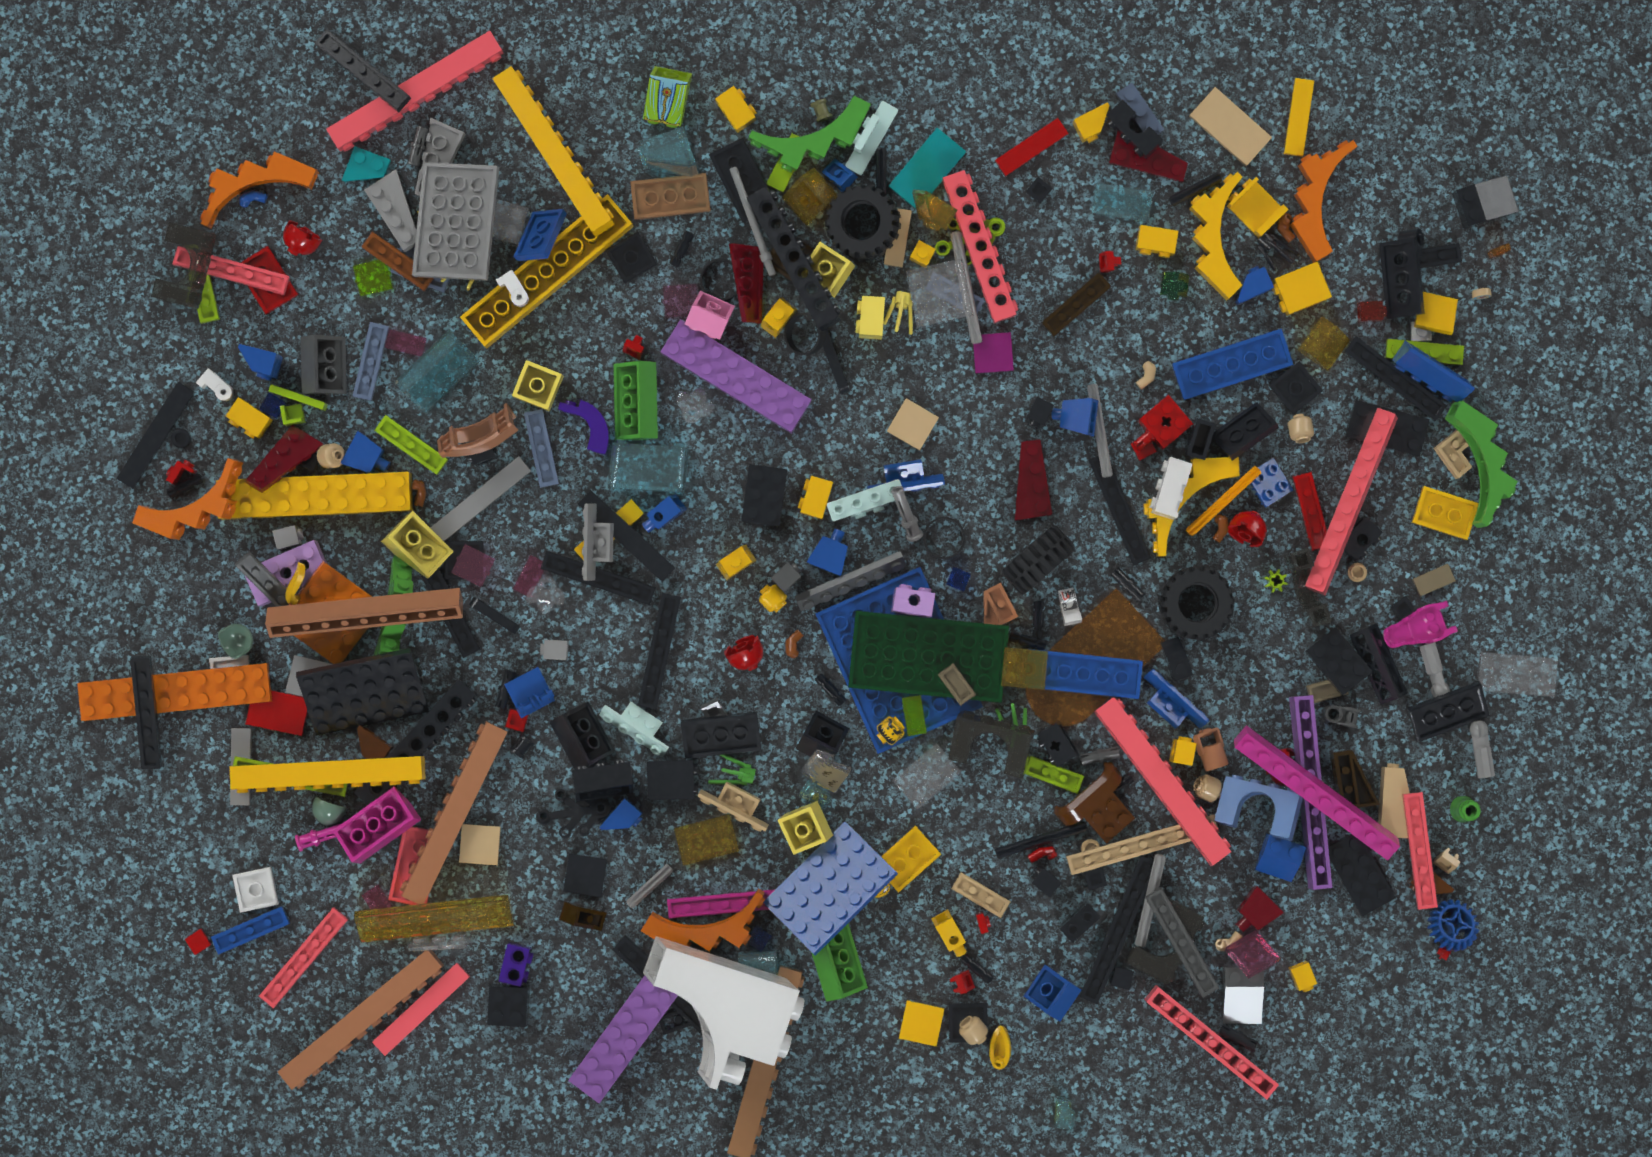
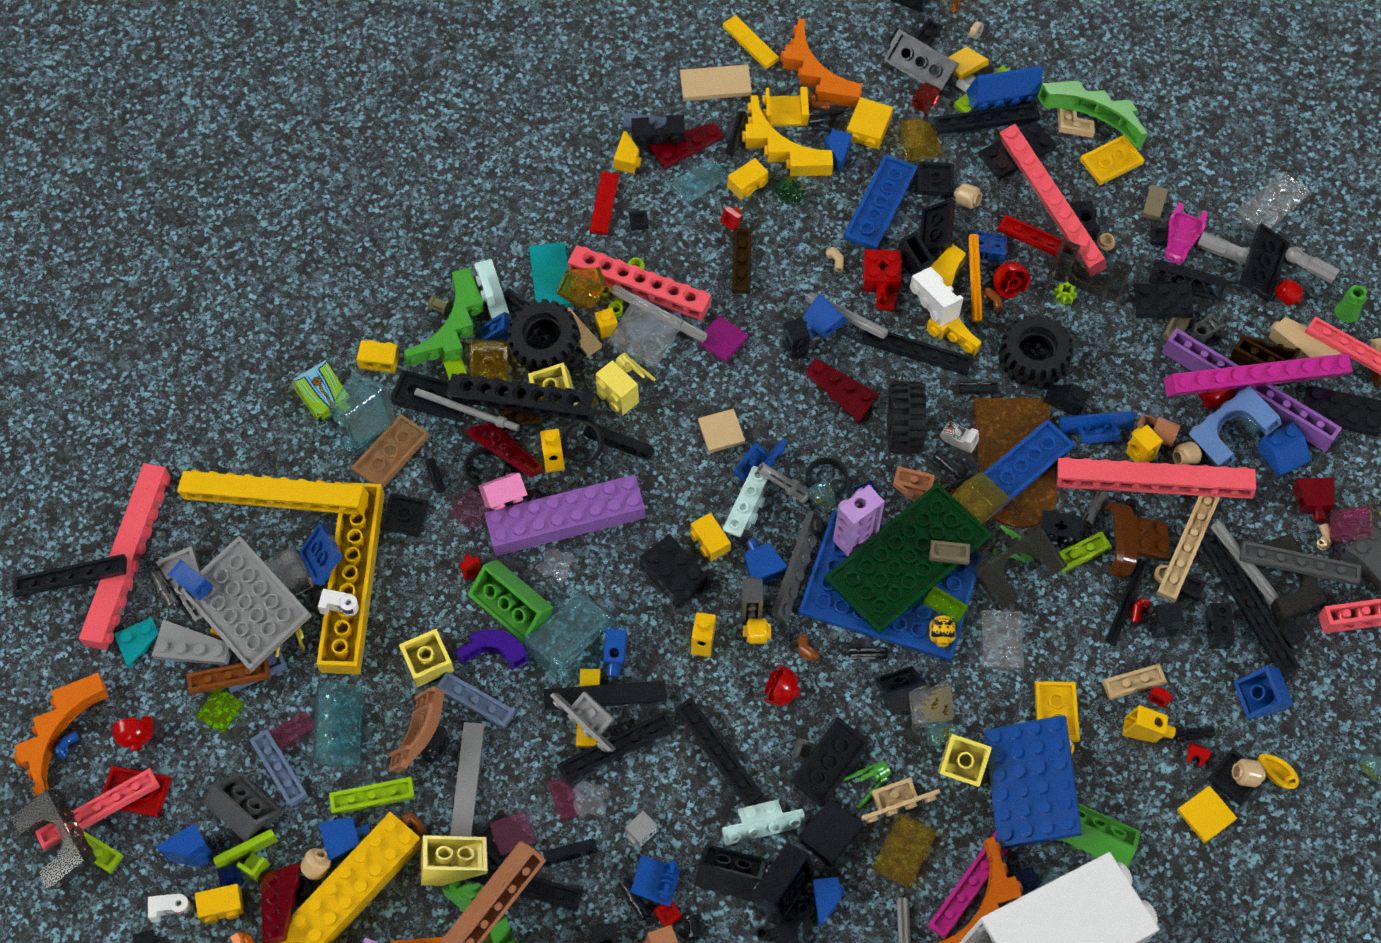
camera: 45 degrees left, 25 degrees down
(432, 169) = (190, 580): none -> blue slope
(922, 549) = (822, 495): none -> clear light blue rock
(1435, 752) = (1289, 292): none -> red head

